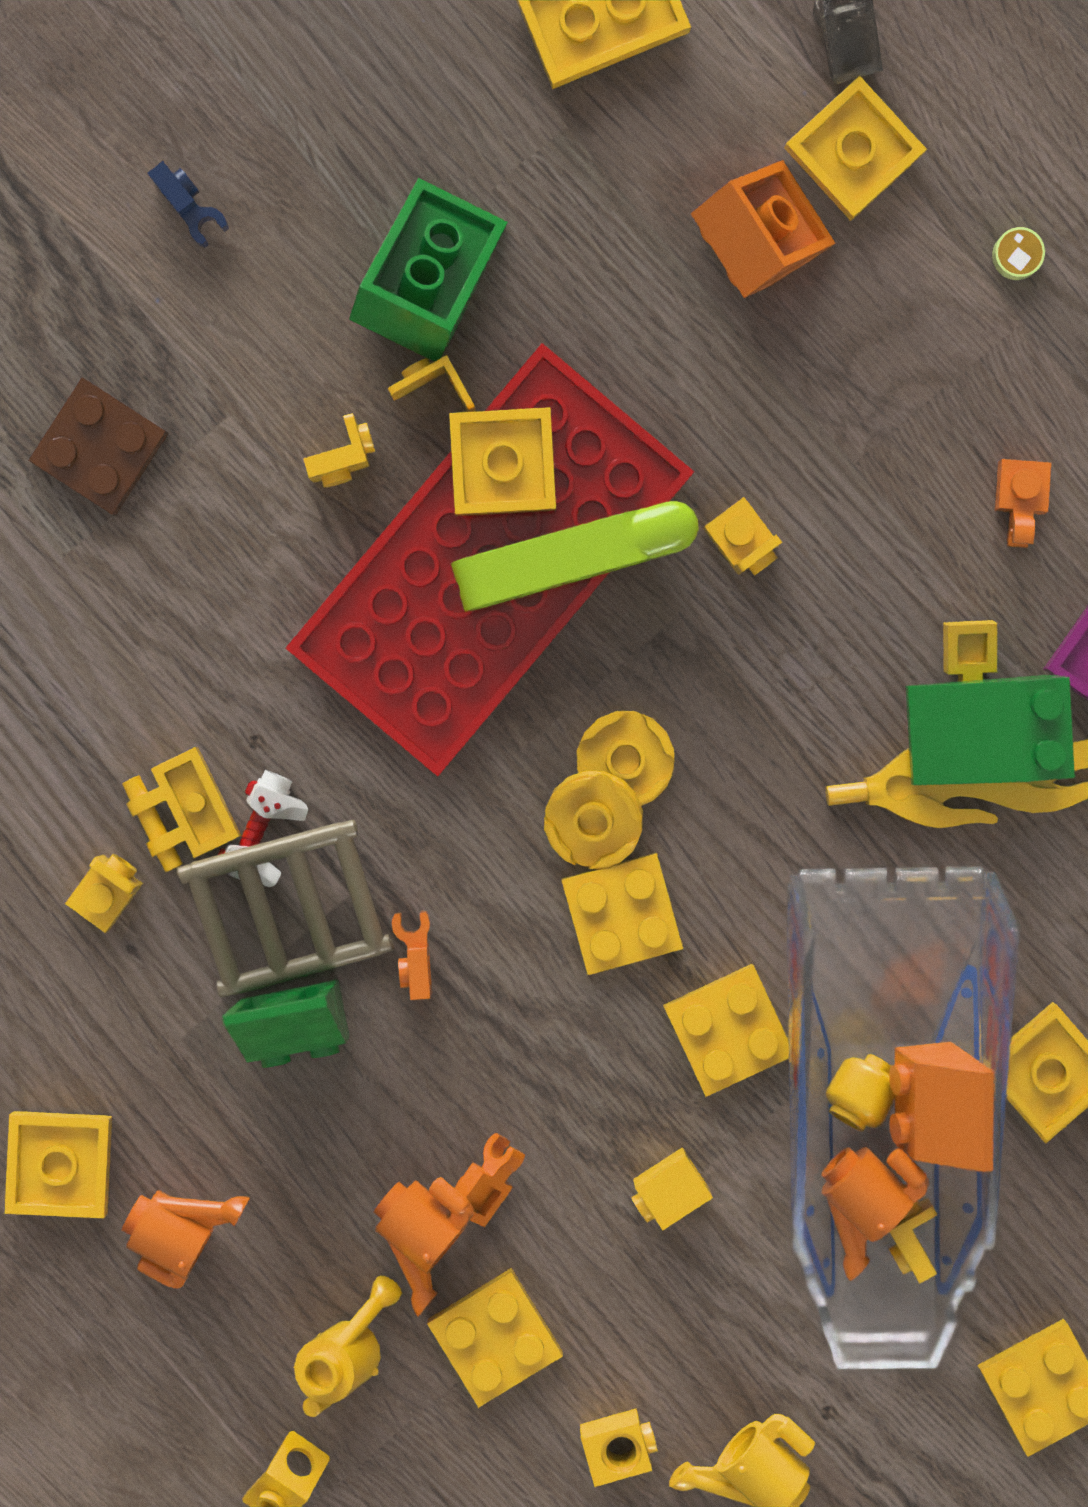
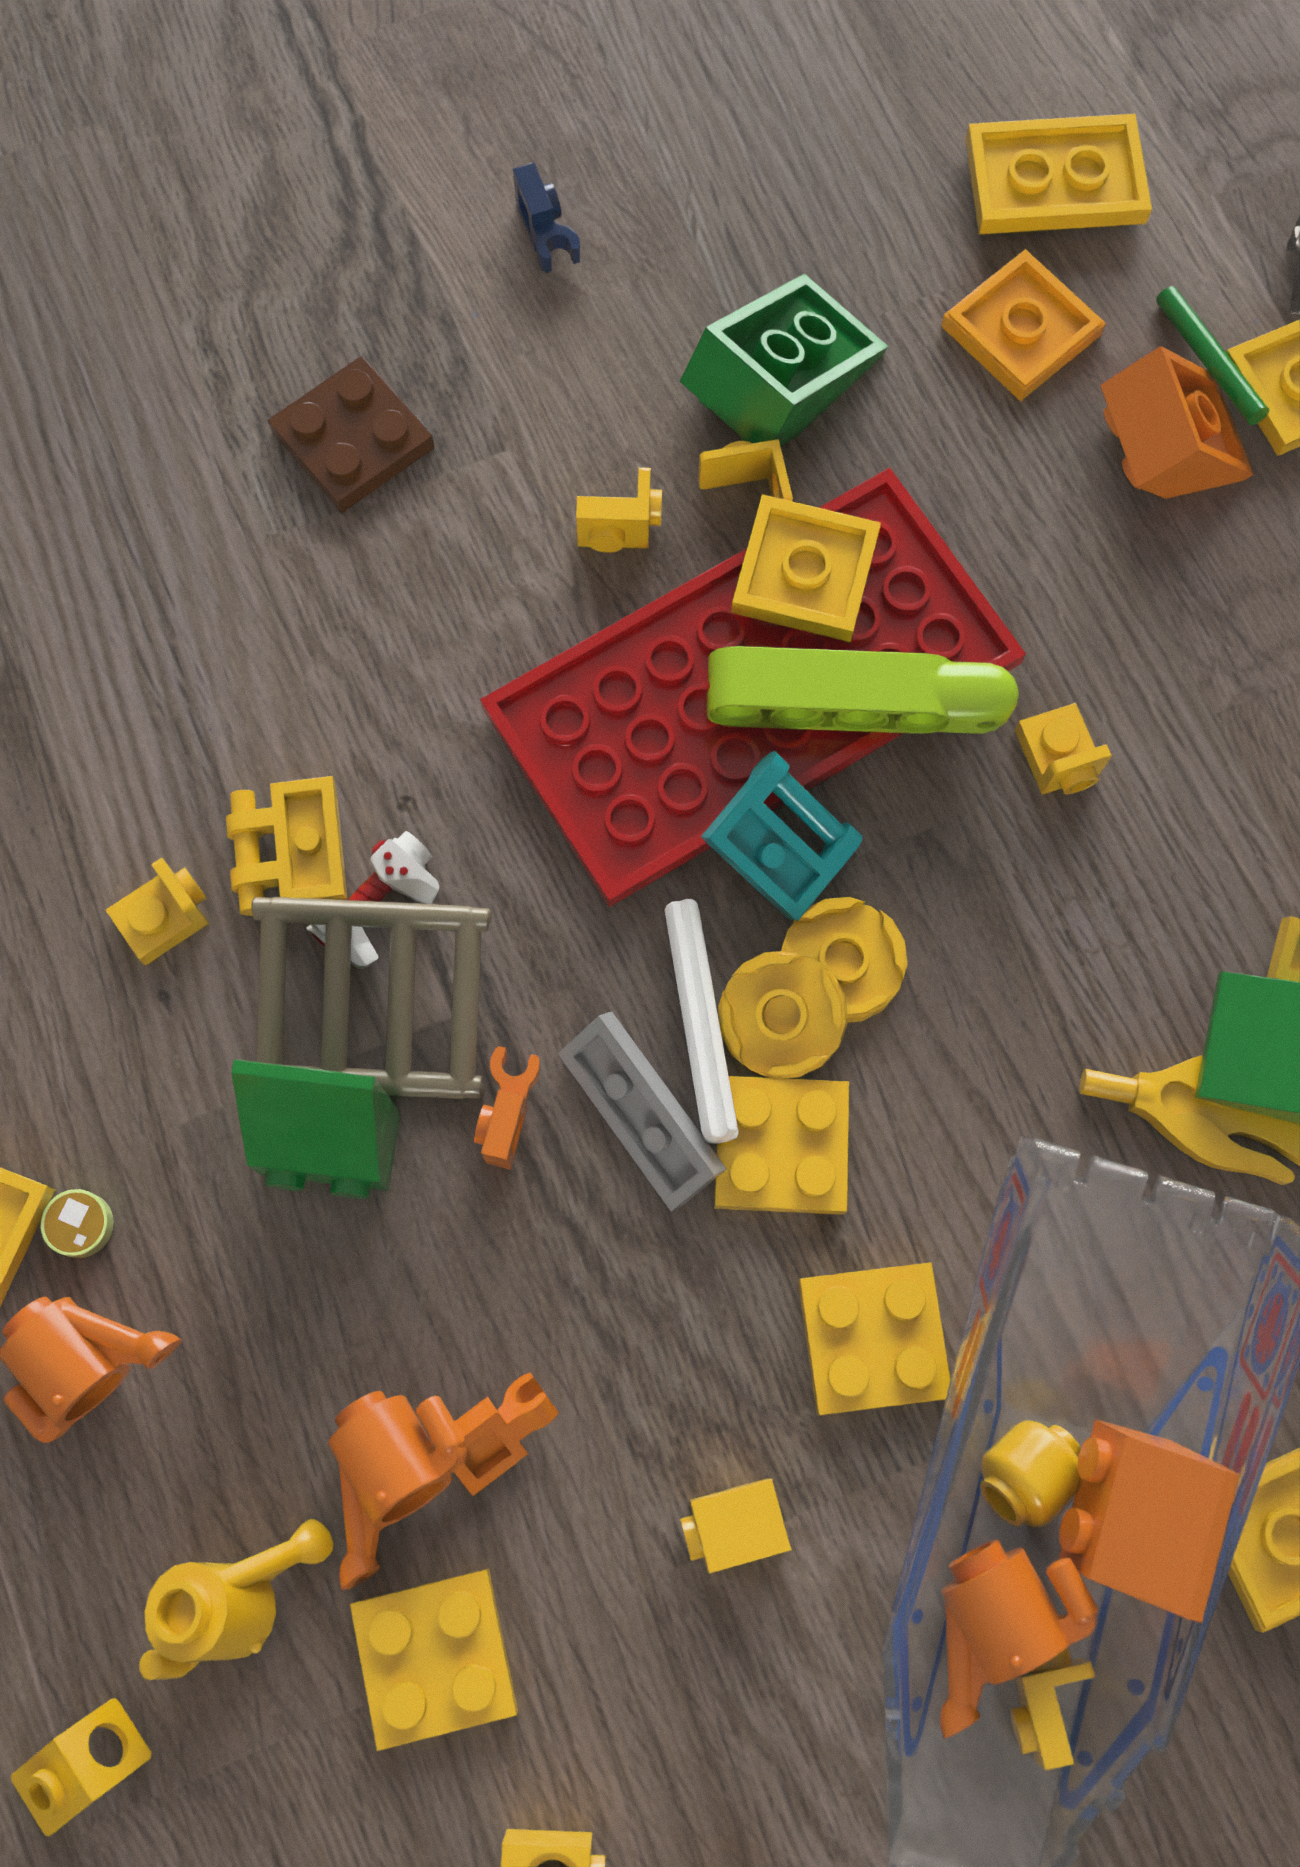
camera: 15 degrees right, 15 degrees down
(138, 1134) = (77, 1223): none -> tile
(513, 925) = (641, 1111): none -> light grey plate
(534, 844) = (701, 1022): none -> white axle
(545, 701) = (769, 851): none -> teal plate
(612, 164) = (1023, 325): none -> light orange tile
(774, 148) = (1212, 355): none -> green bar

